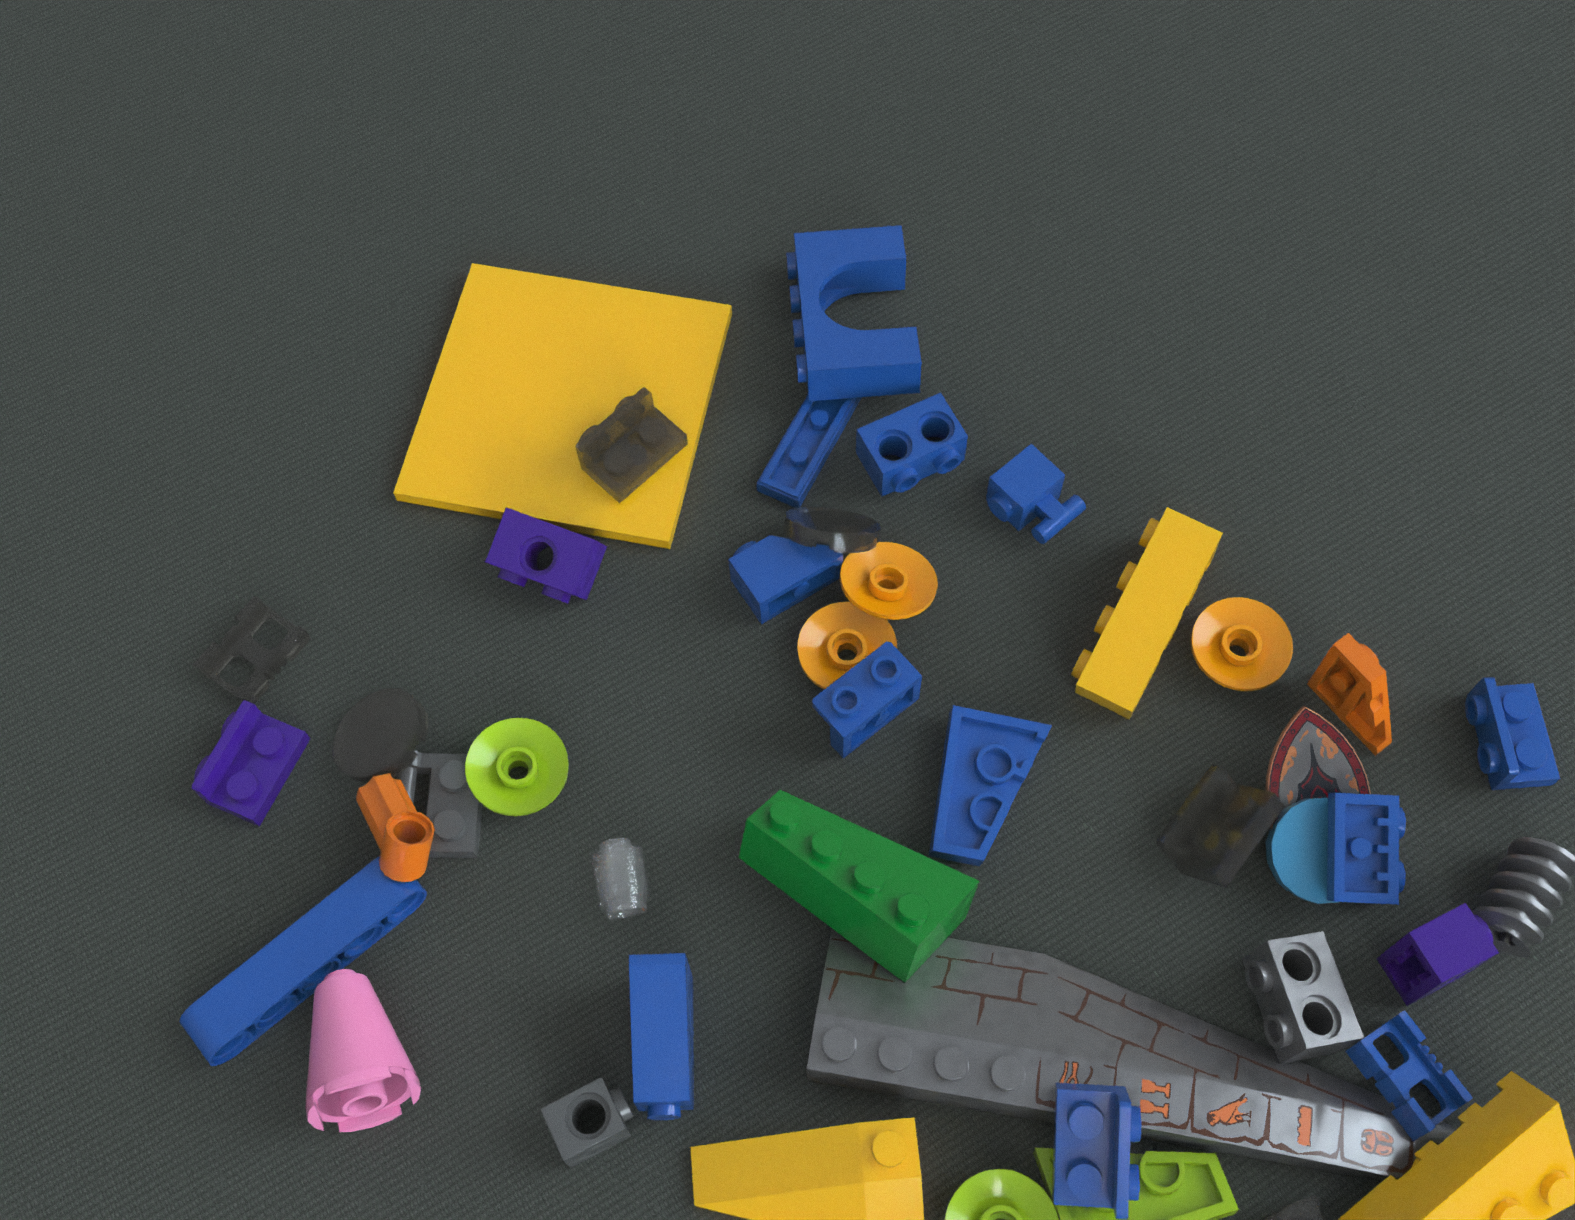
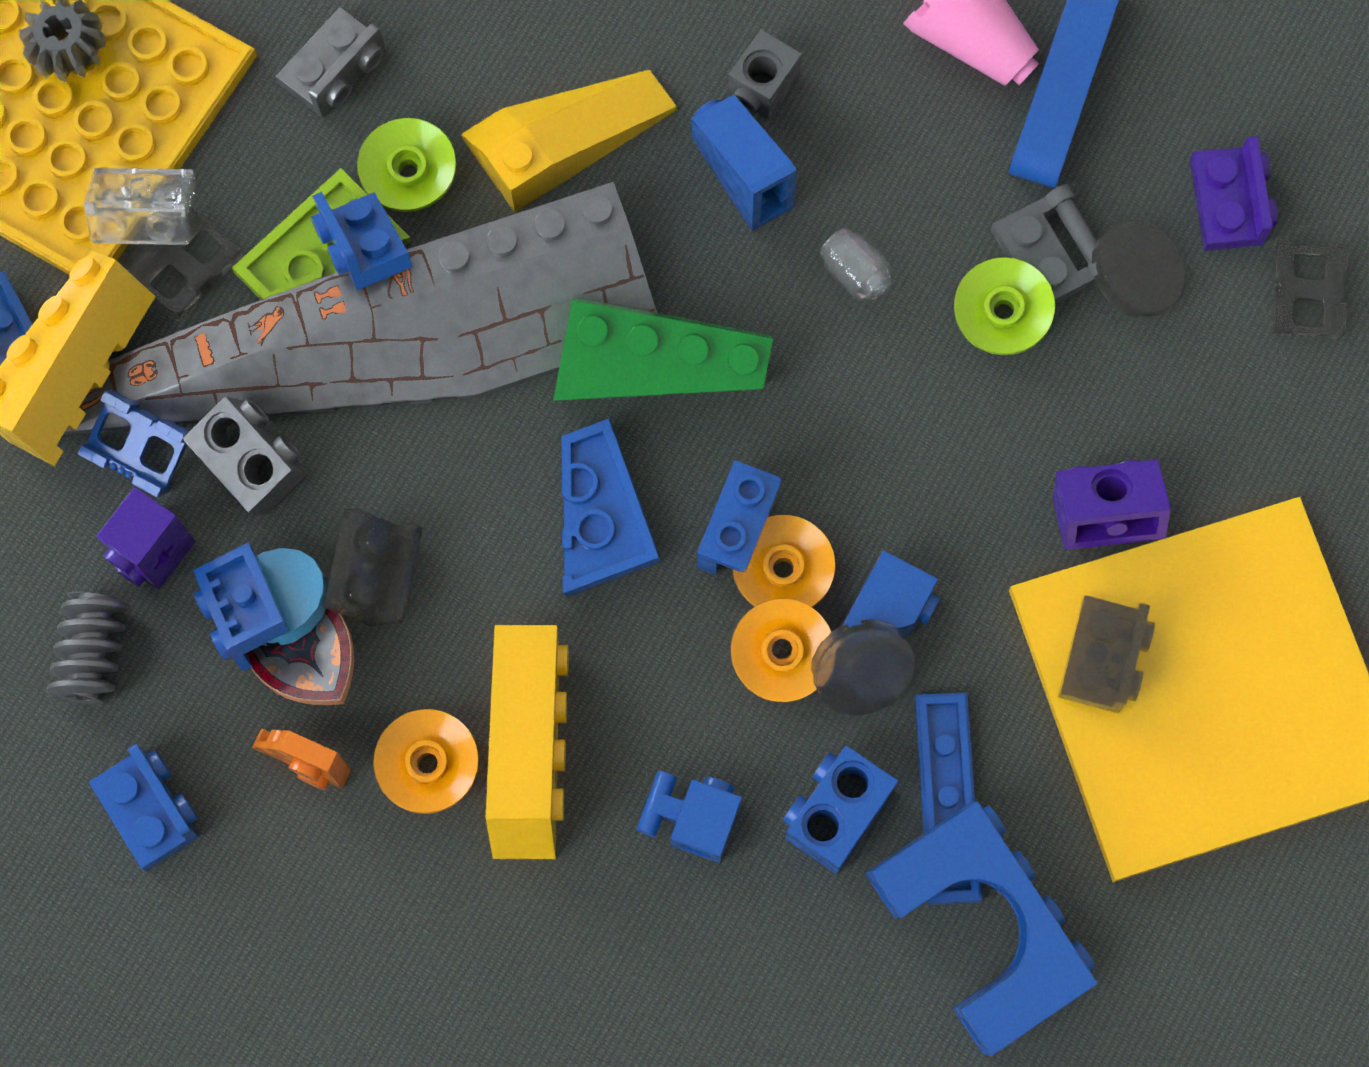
camera: 150 degrees right, 10 degrees up
(397, 827) = (1067, 195): orange piece -> none

